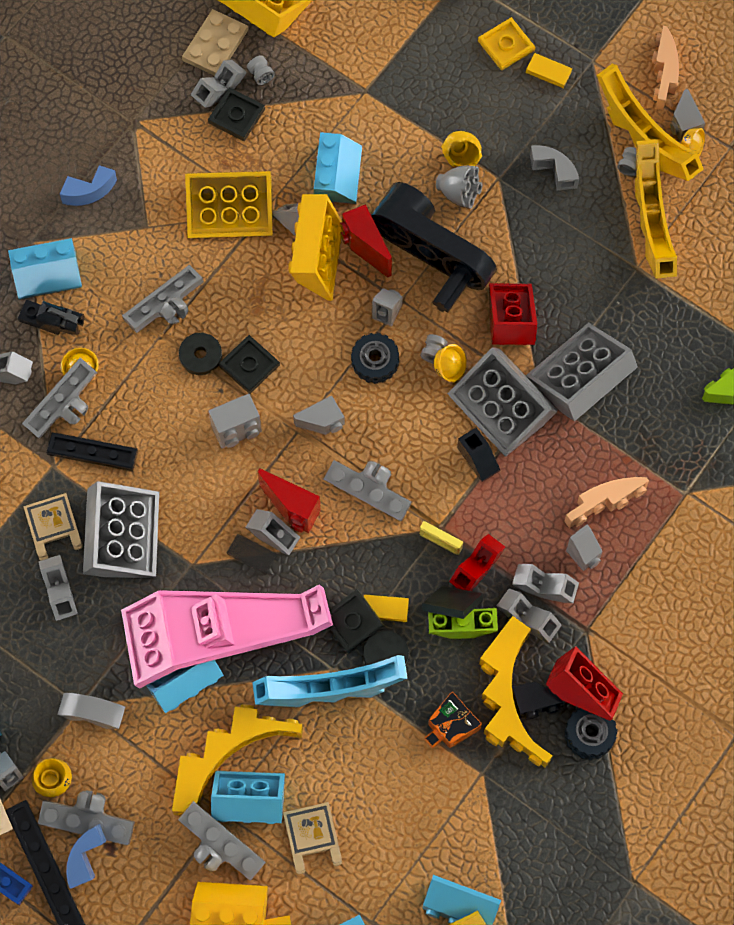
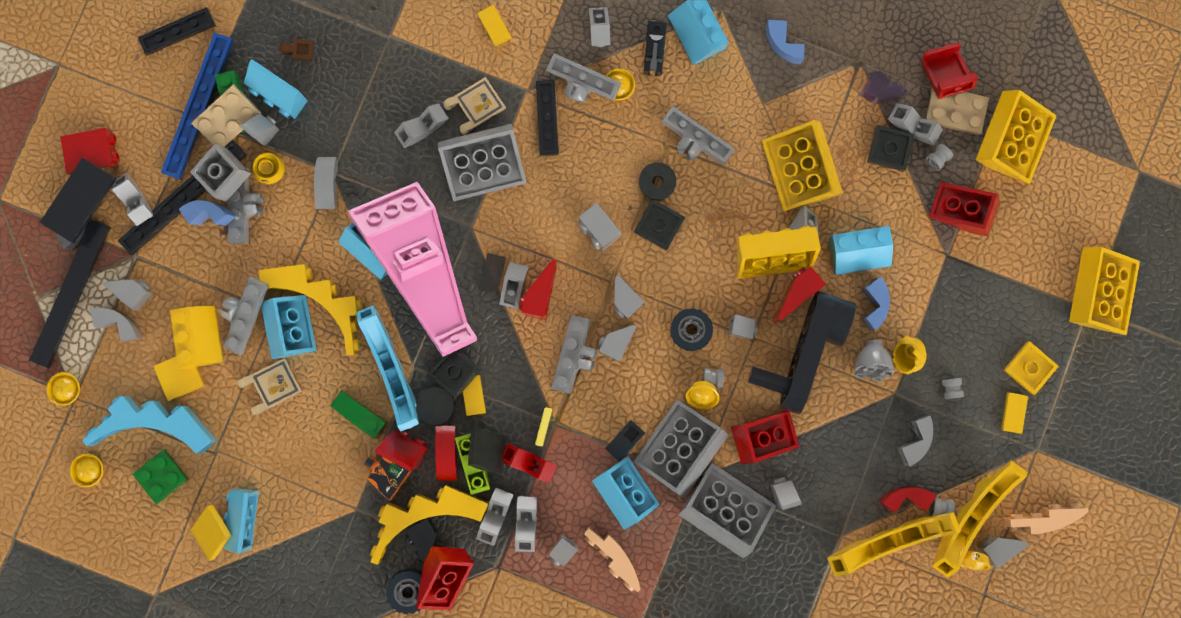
camera: 75 degrees right, 15 degrees up
(43, 823) = (220, 172): none -> light grey brick
(170, 107) = (880, 89): none -> clear purple slope
(172, 38) = (948, 71): none -> red panel
(322, 60) = (965, 208): none -> red slope
(369, 438) = (616, 342): none -> light grey slope
(373, 739) = (359, 415): none -> green slope
(392, 164) = (879, 296): none -> medium blue brick
(428, 693) = (403, 449): none -> red slope
(443, 649) = (446, 453): none -> red brick
(508, 119) = (952, 388): none -> light grey wheel
(537, 470) = (626, 493): none -> medium azure slope
(578, 306) = (785, 493): none -> light grey slope
(613, 181) = (919, 497): none -> red brick

